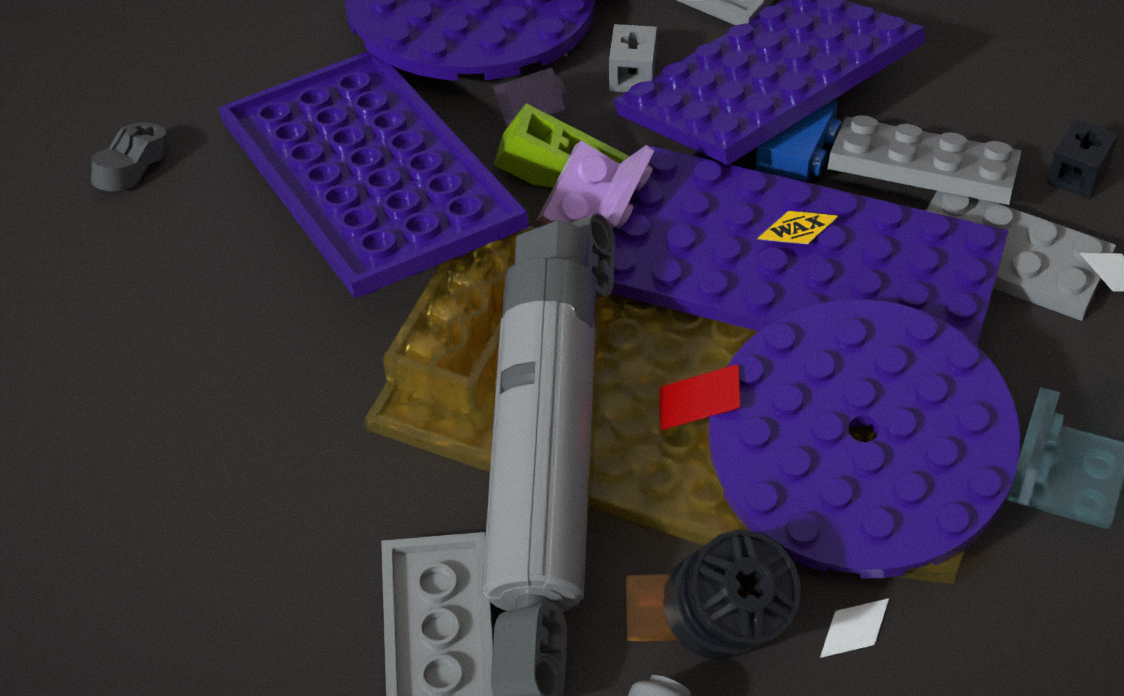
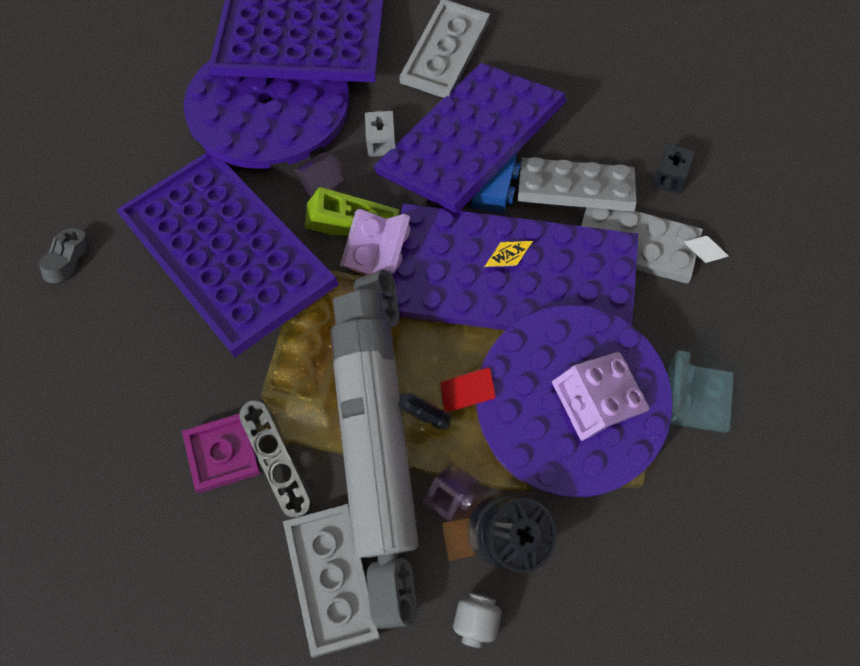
camera: 10 degrees left, 15 degrees up
(306, 441) = (219, 454): none -> magenta plate
(385, 456) = (271, 461): none -> beam
(628, 410) = (424, 410): none -> black axle
(648, 535) = (451, 491): none -> clear purple brick
(854, 628) = (585, 527): white sticker -> none
(899, 414) = (599, 394): none -> lavender bracket

